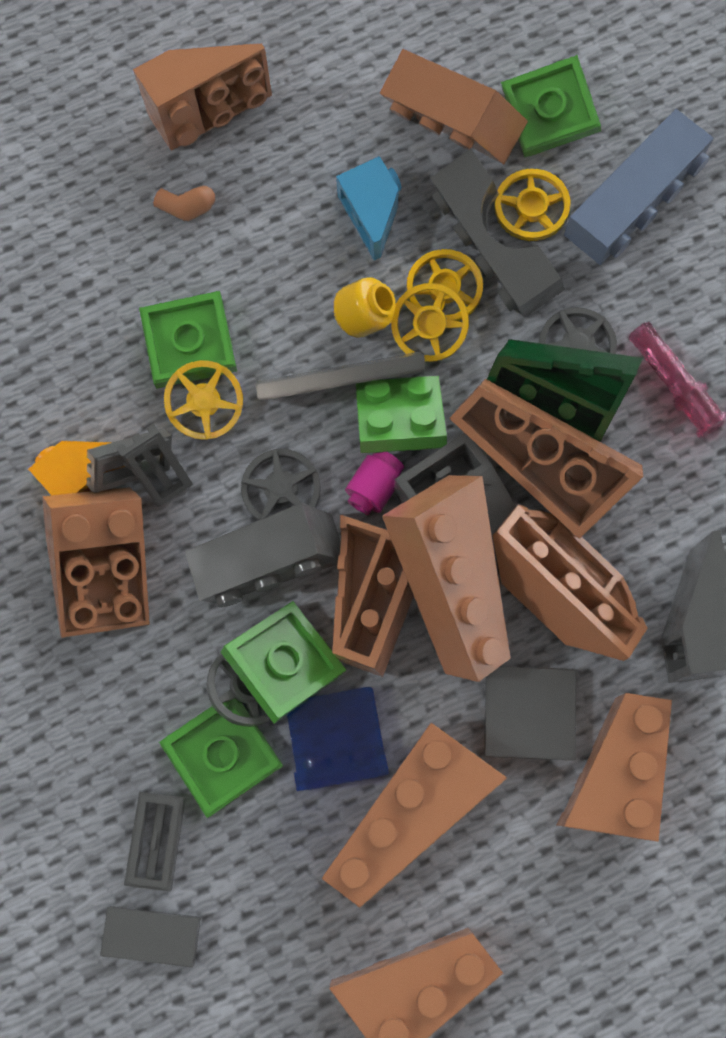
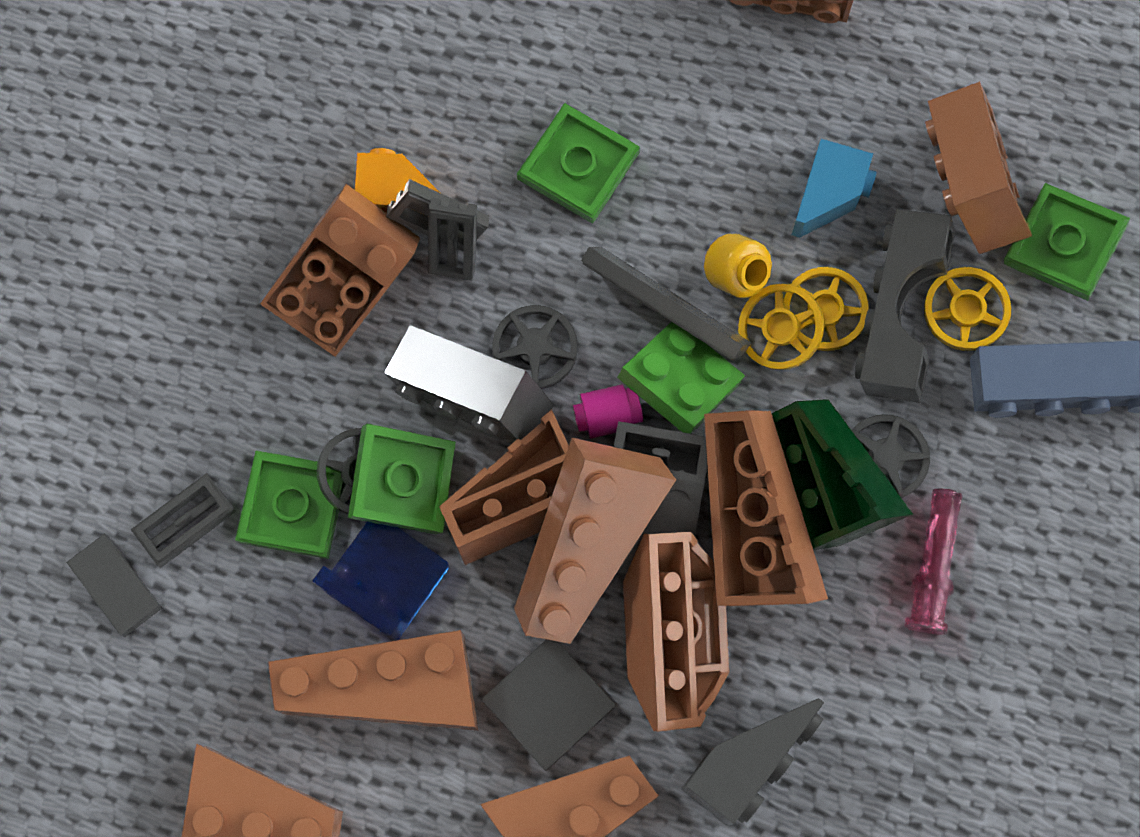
camera: 45 degrees right, 0 degrees up
(188, 205) = (686, 54): nougat arm -> none
(203, 400) = (542, 222): yellow wheel -> none

